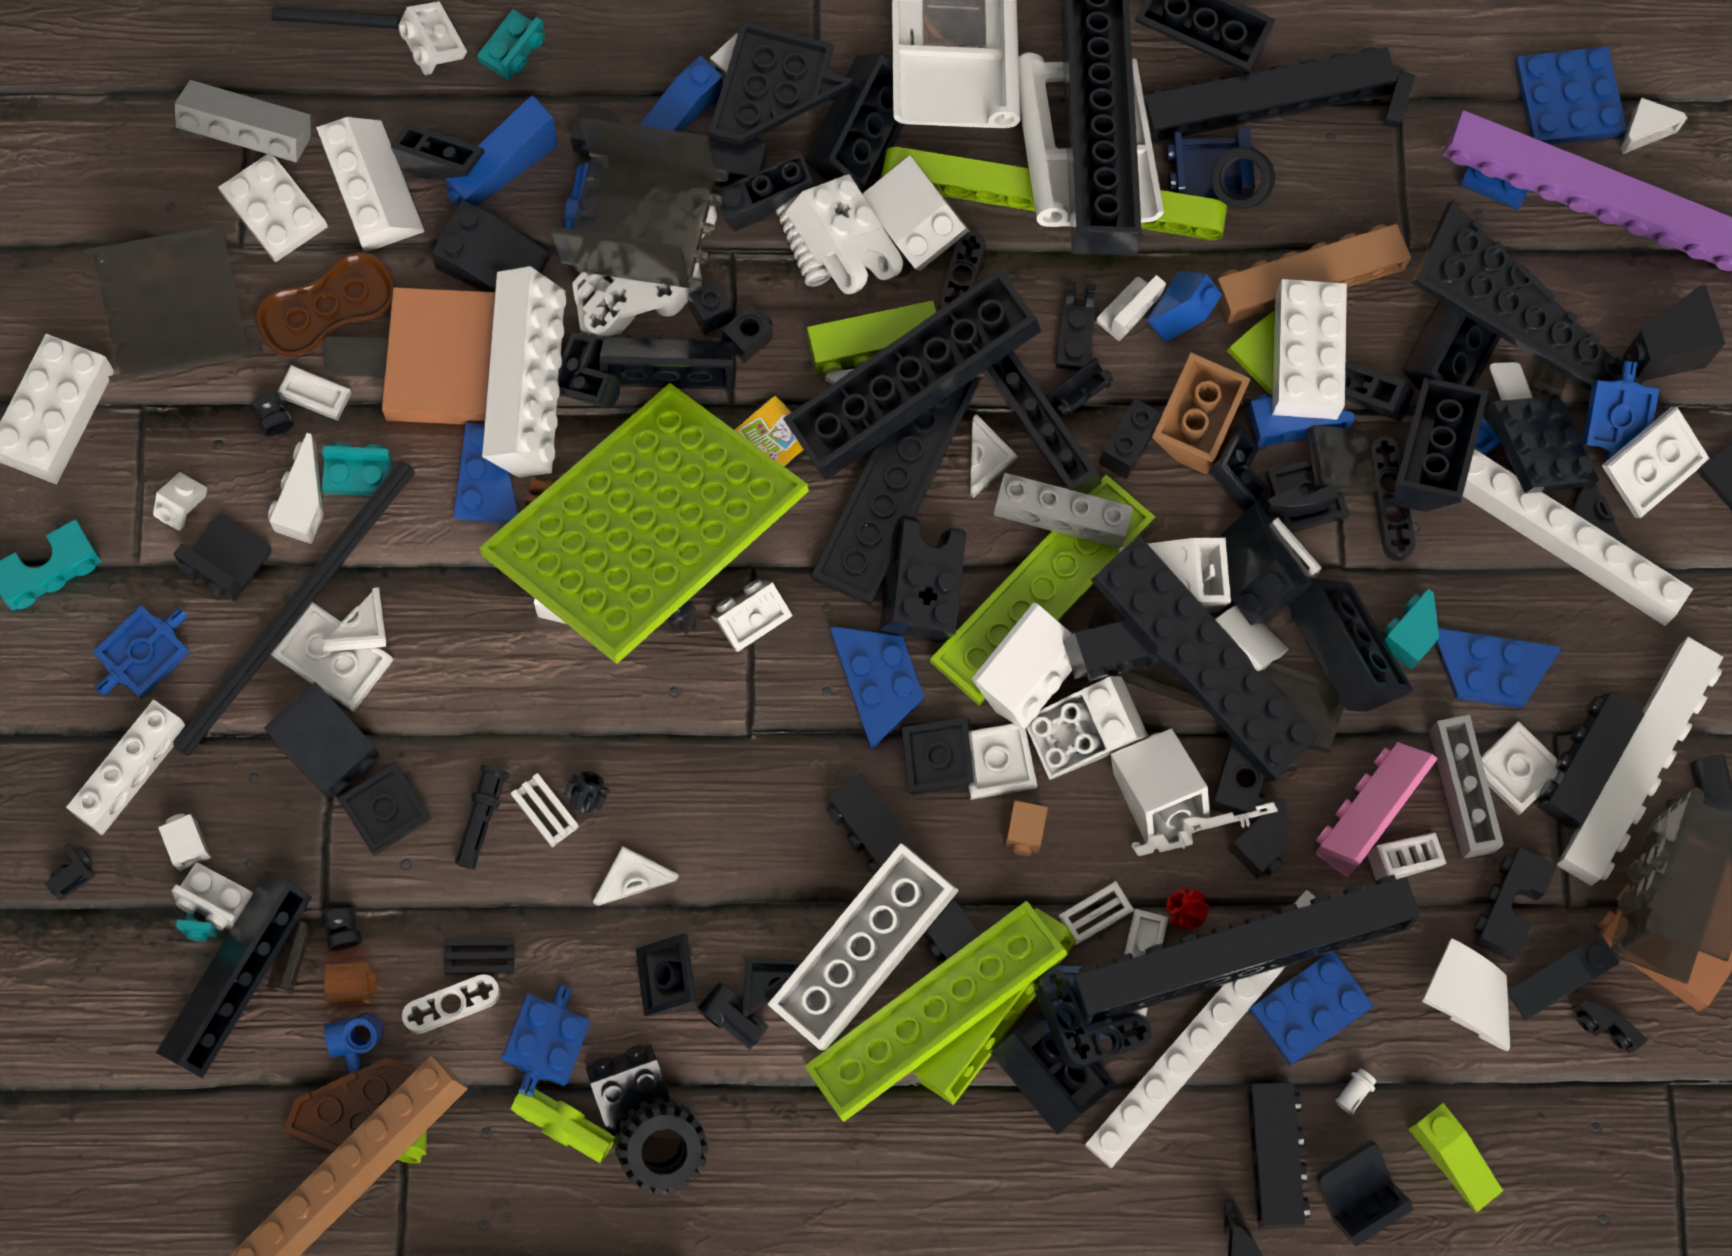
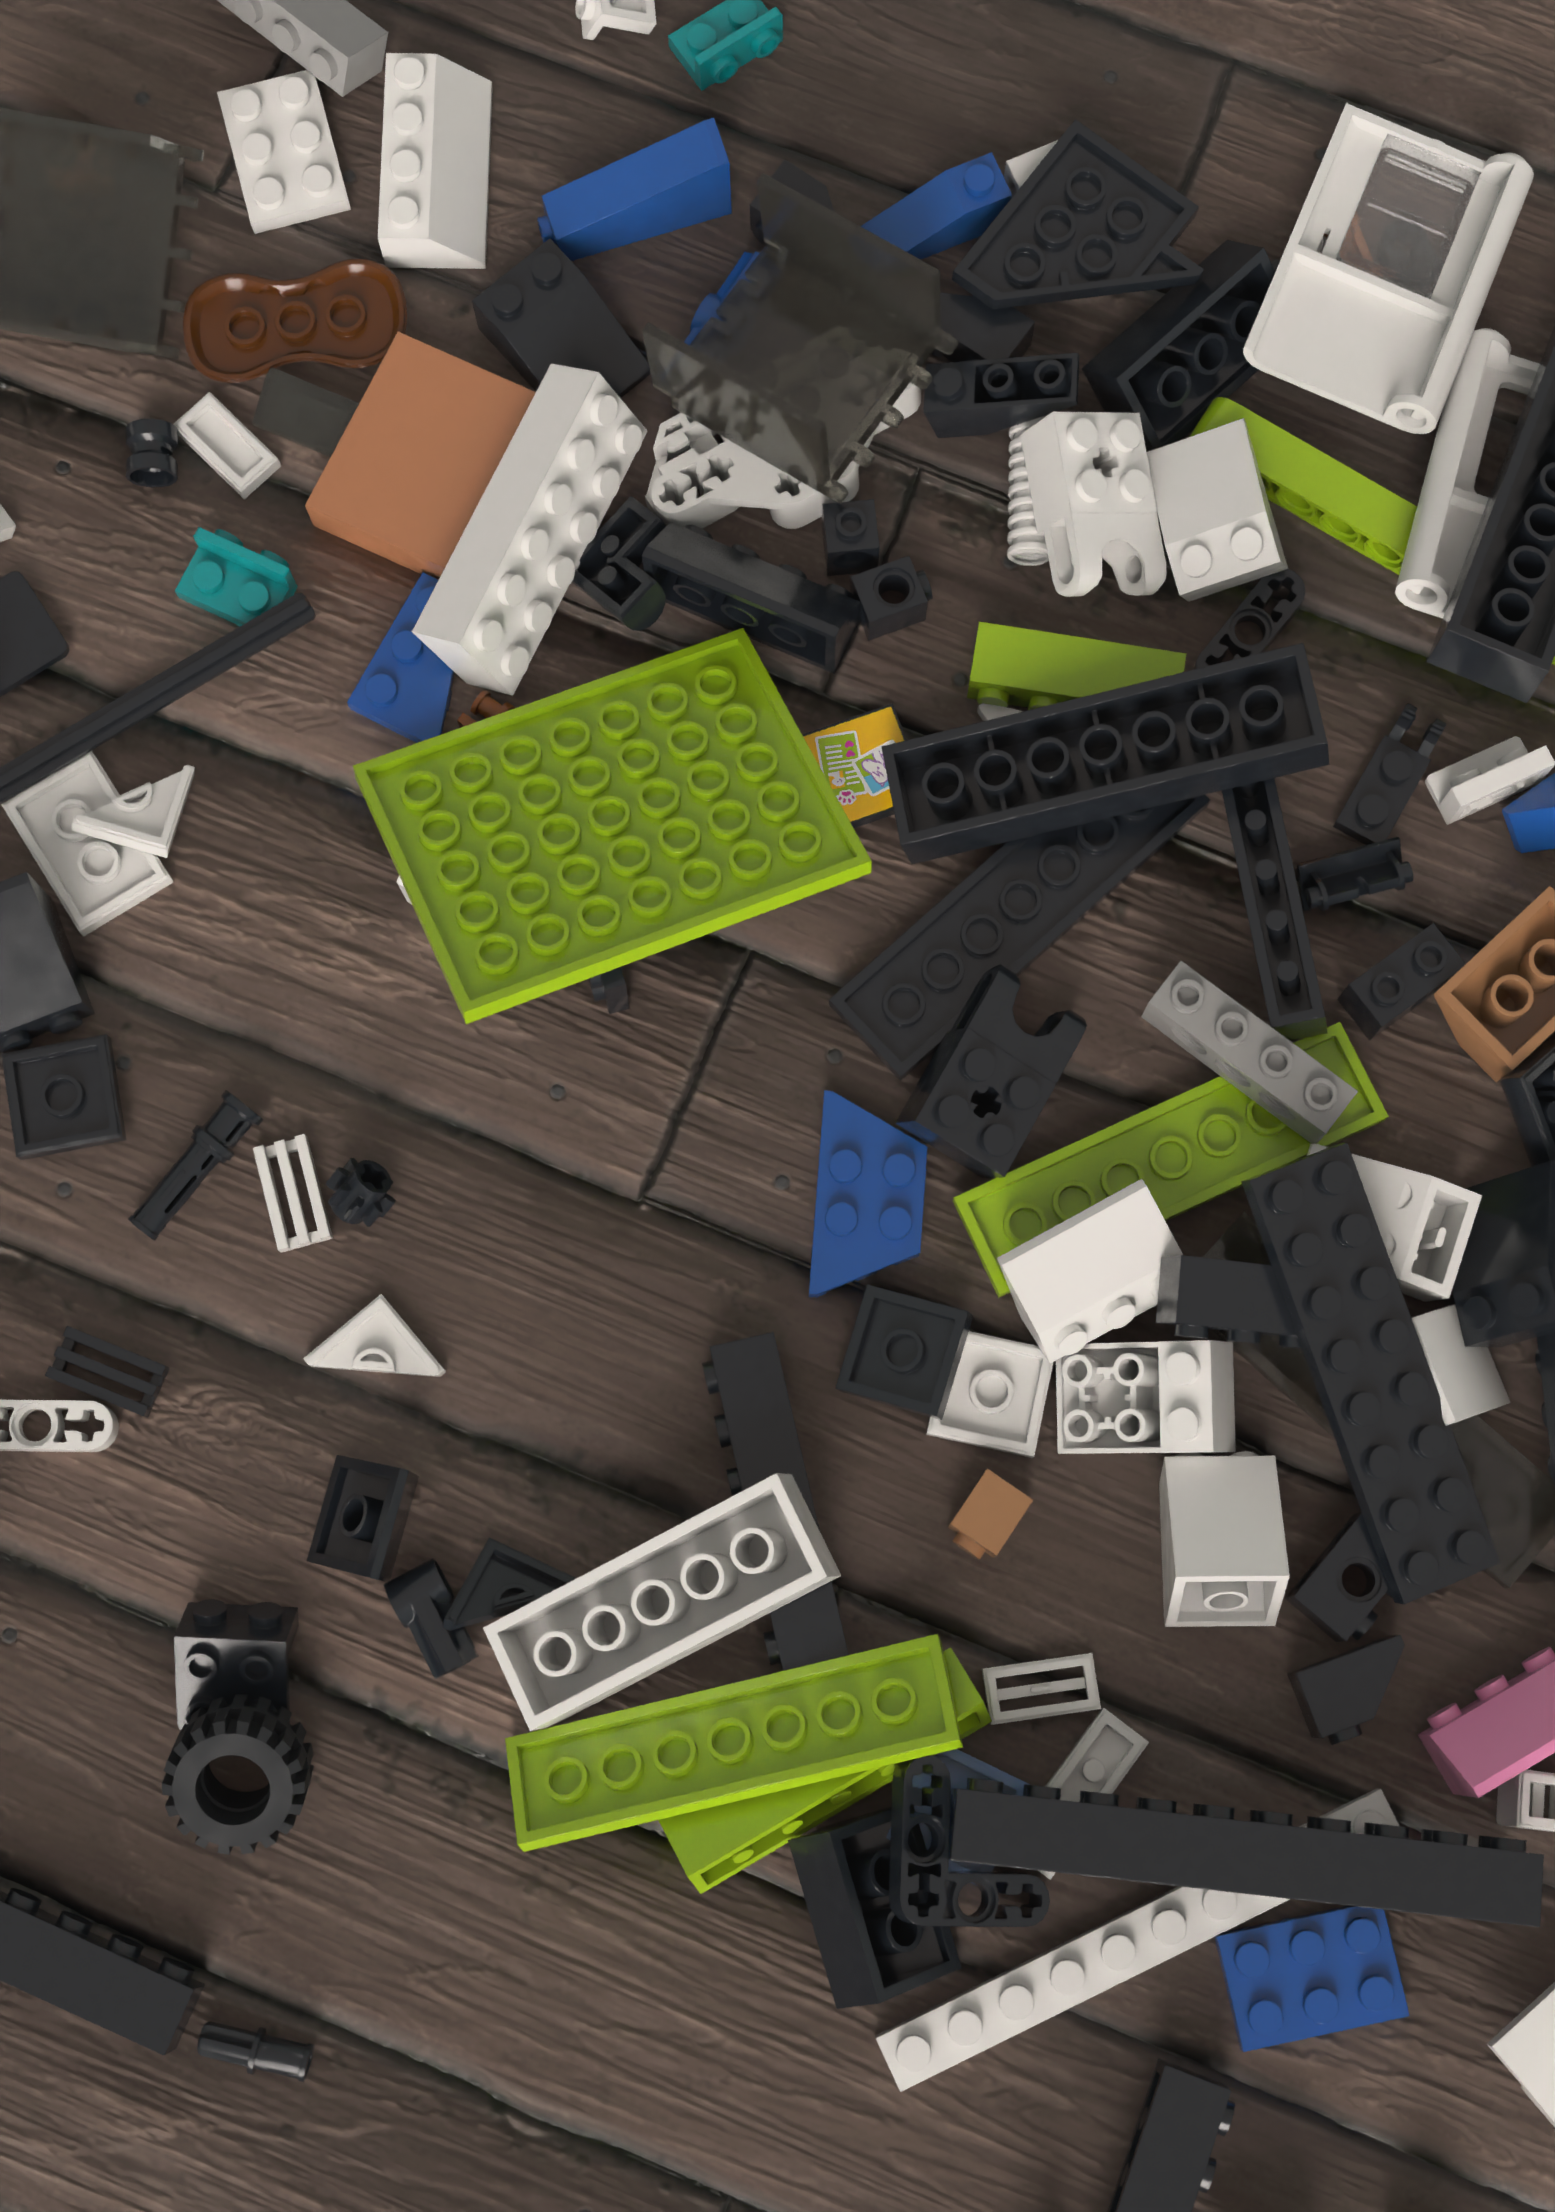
camera: 30 degrees right, 5 degrees up
(300, 502) = (139, 594): white slope -> none
(434, 154) = (537, 153): black slope -> none
(545, 1040) = (143, 1540): blue plate -> none
(564, 1124) = (118, 1674): lime piece -> none
(751, 613) = (716, 1021): white bracket -> none
(988, 456) = (1173, 924): white tile -> none
(1185, 836) = (1238, 1616): white piece -> none
(1187, 908) = (1182, 1743): red gear -> none
(1356, 1091) = (1325, 2136): white pin -> none

